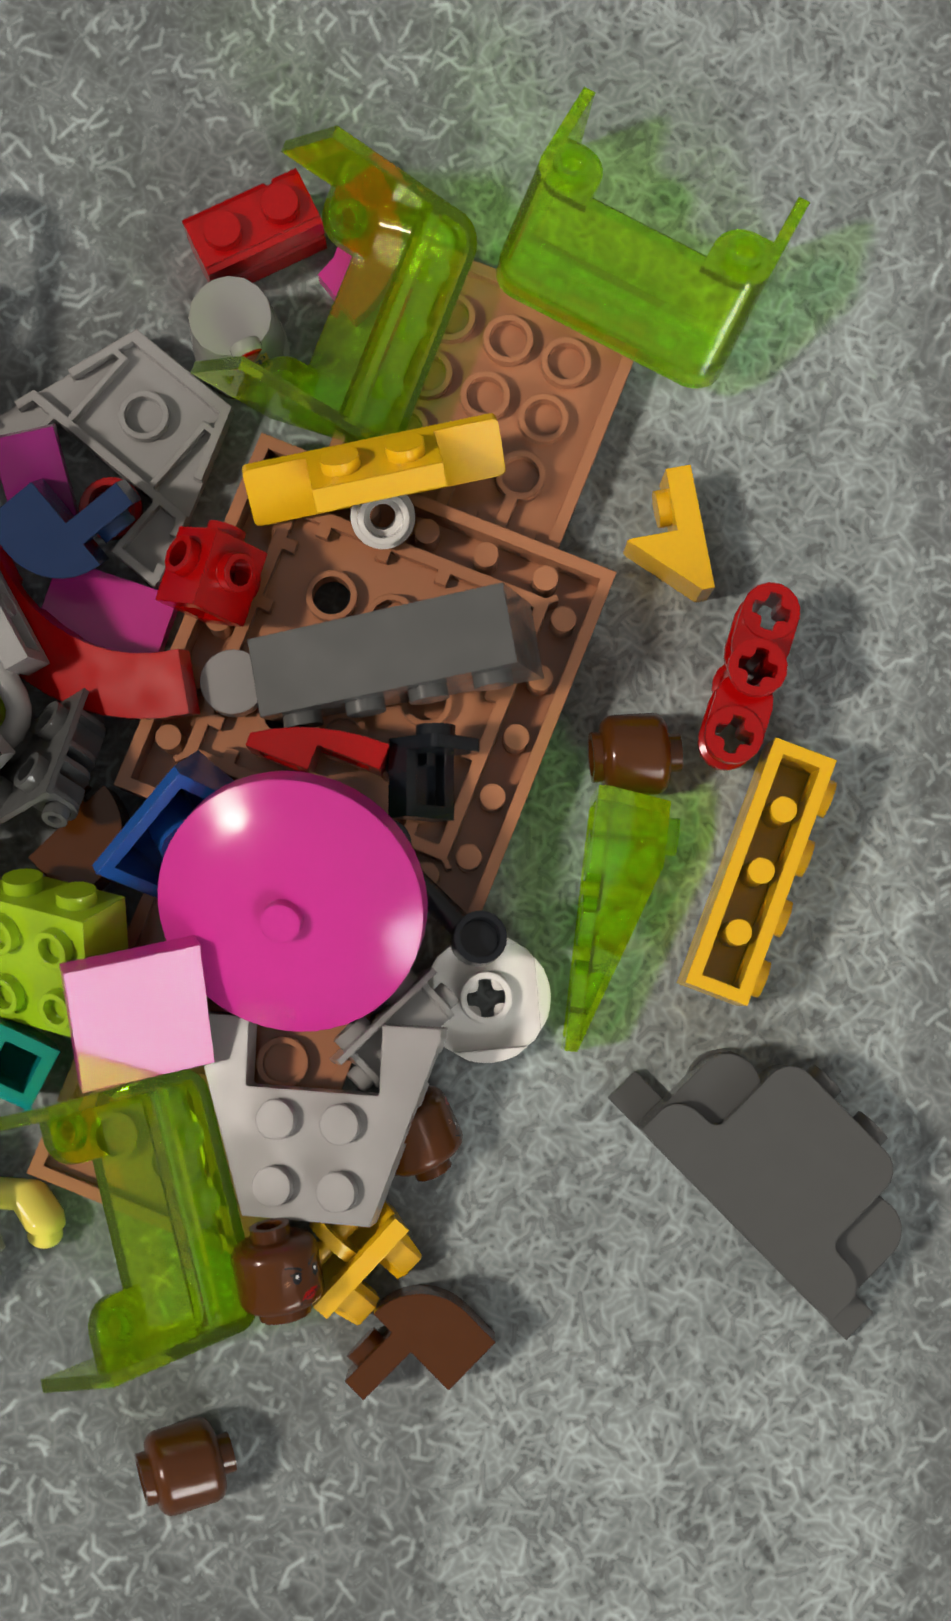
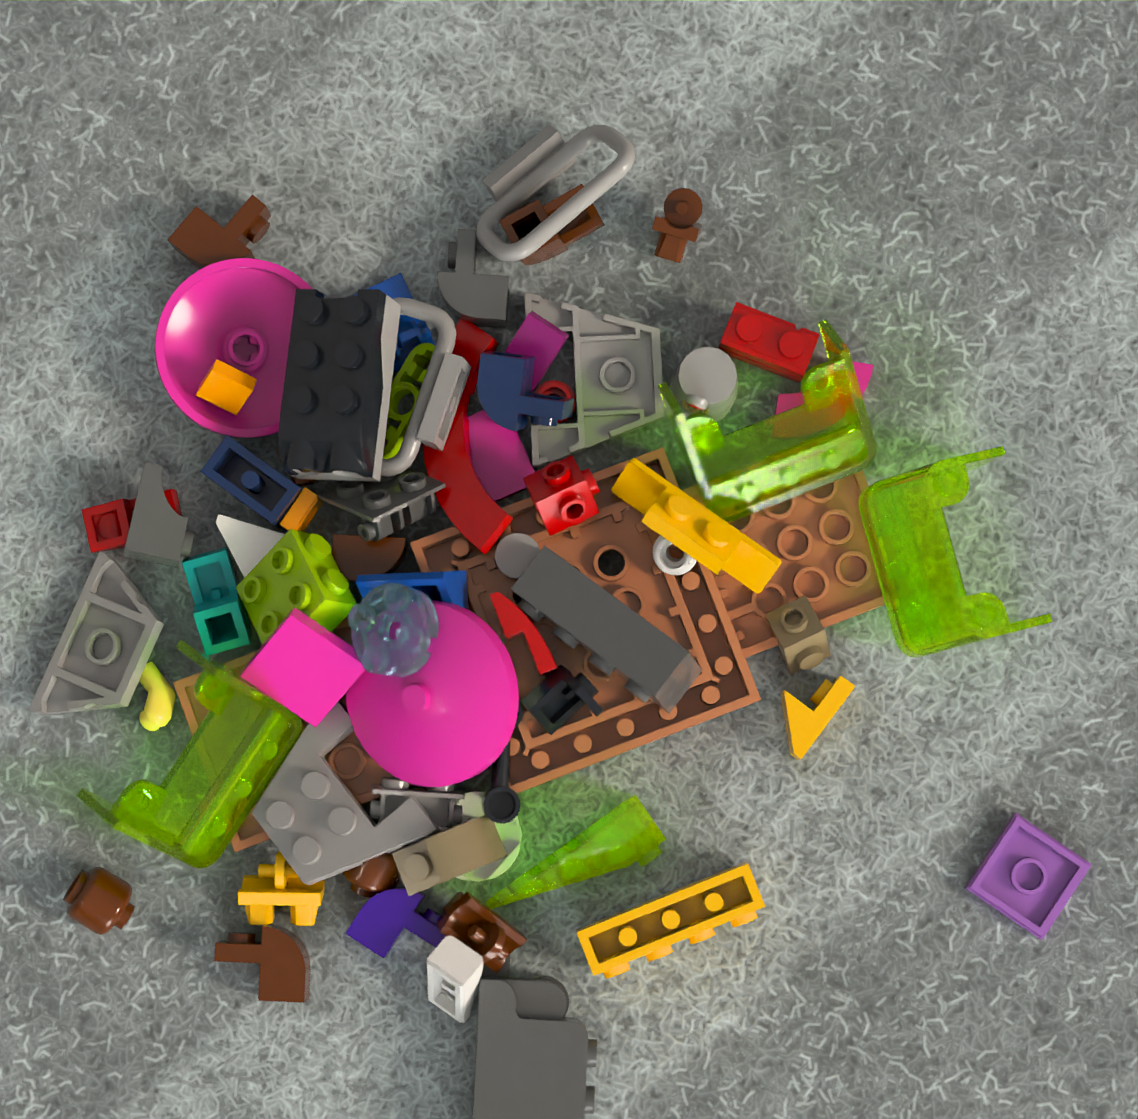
camera: 55 degrees right, 0 degrees up
(45, 207) = (678, 223): none -> reddish brown hips
(159, 899) = (371, 626): none -> clear light blue plate
(277, 1272) = (239, 857): reddish brown head -> none
(481, 1043) = (449, 854): none -> dark tan brick
(483, 1159) = (386, 916): none -> dark purple brick
(586, 474) = (799, 635): none -> dark tan bracket
(588, 1084) = (480, 929): none -> reddish brown hips
(614, 1155) = (453, 977): none -> white slope
(634, 753) = (674, 797): reddish brown head -> none
(764, 657) = (790, 819): red axle -> none

